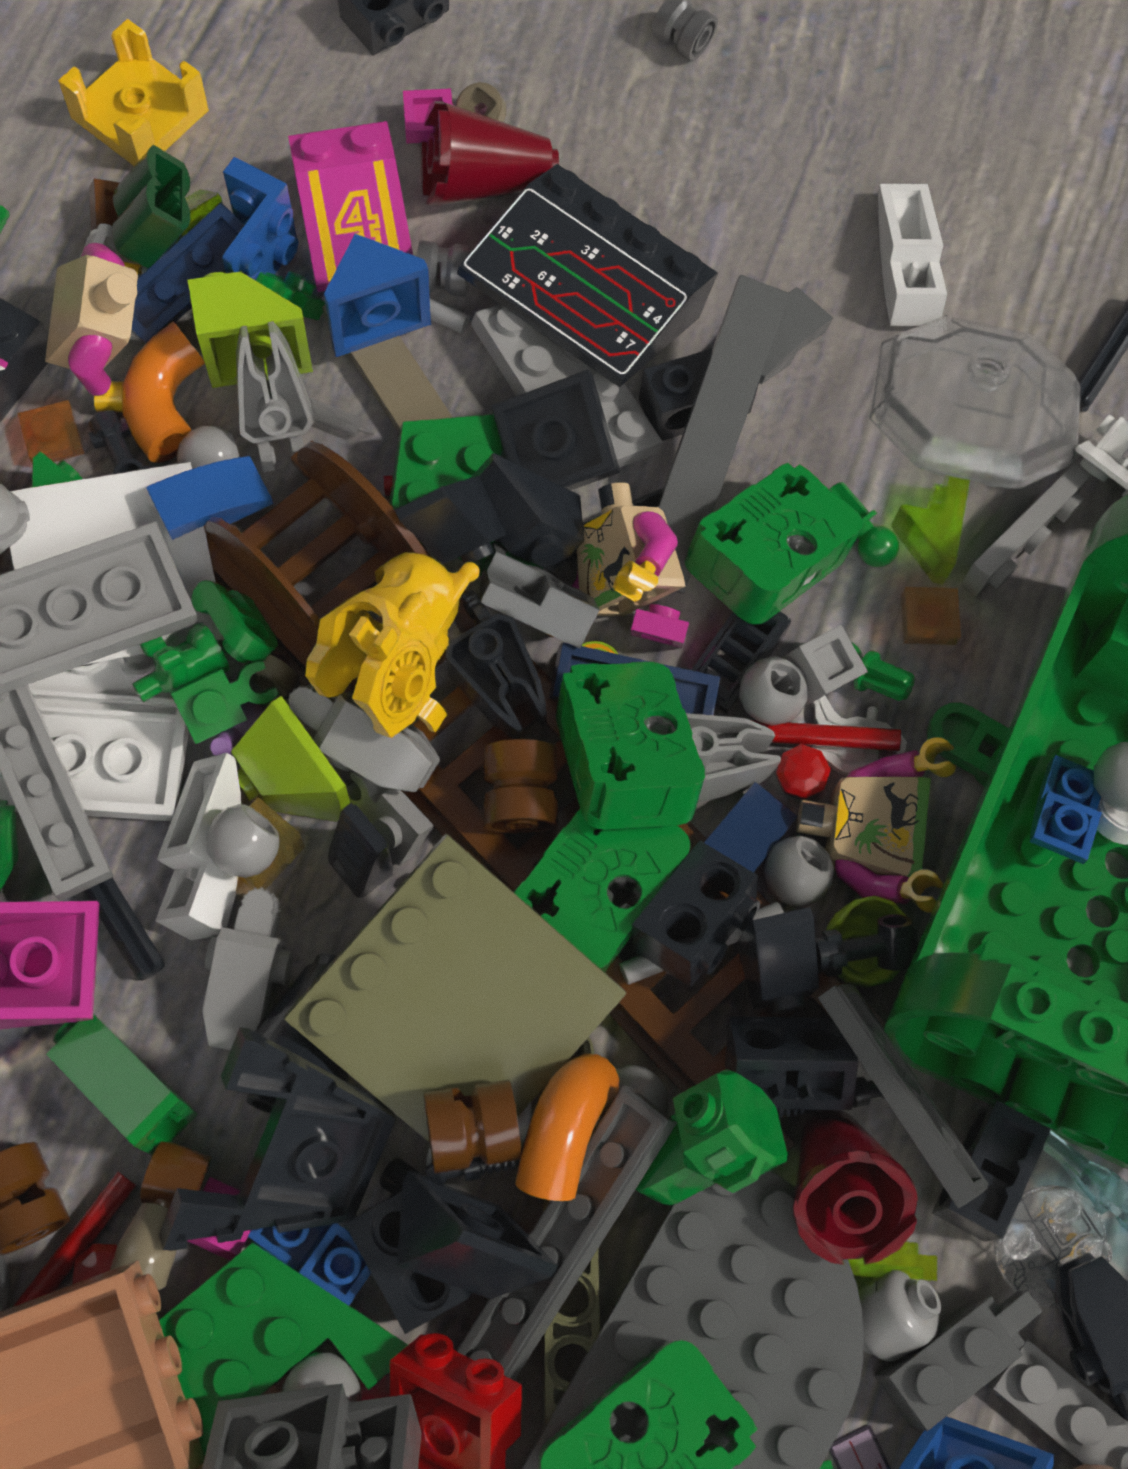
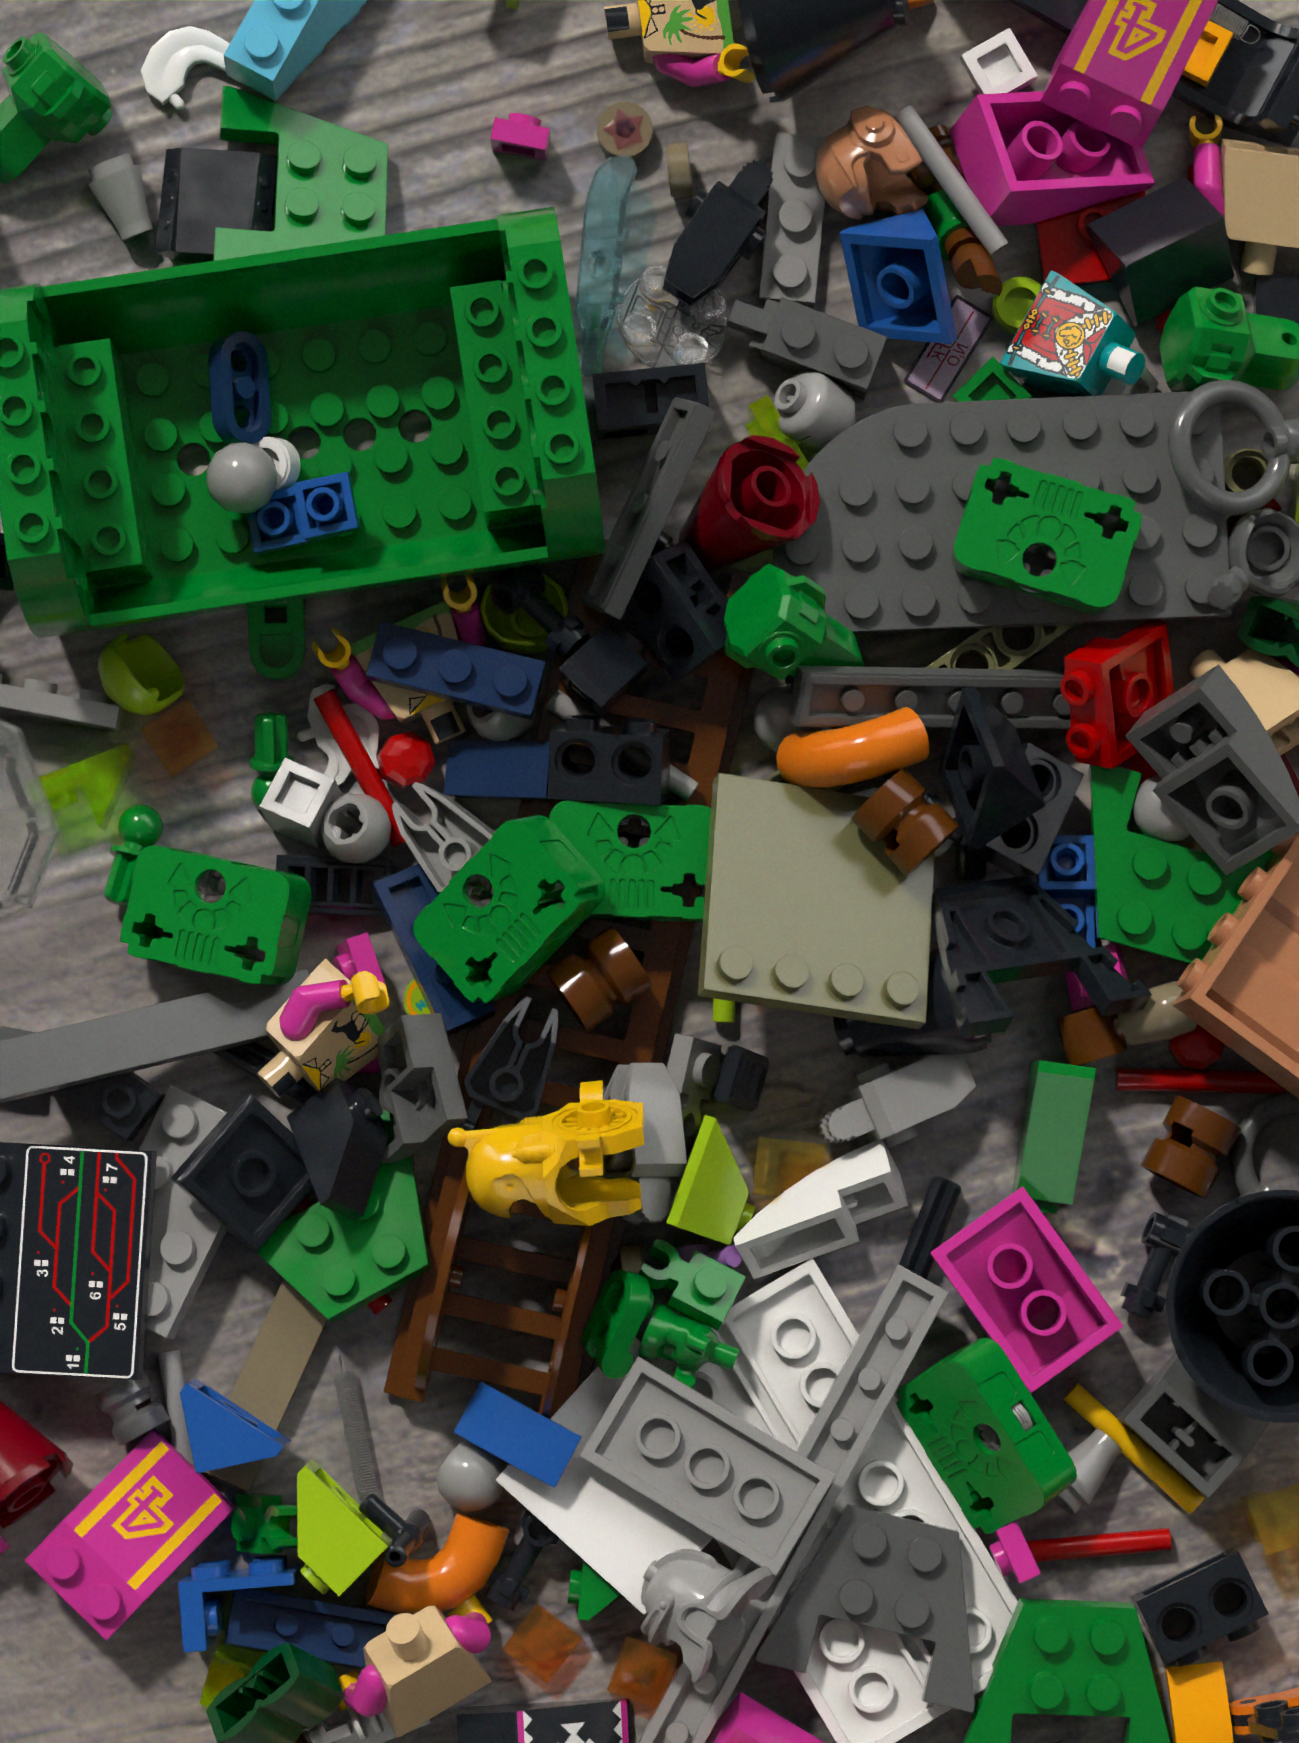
camera: 120 degrees left, 15 degrees up
(201, 375) = (405, 1534): none -> black piece
(242, 841) = (803, 1171): light grey piece -> none
(274, 405) = (389, 1450): light grey hinge -> none
(454, 521) = (403, 1195): black slope -> none
(856, 843) = (456, 670): none -> dark blue plate
(1003, 614) = (139, 674): none -> lime hair

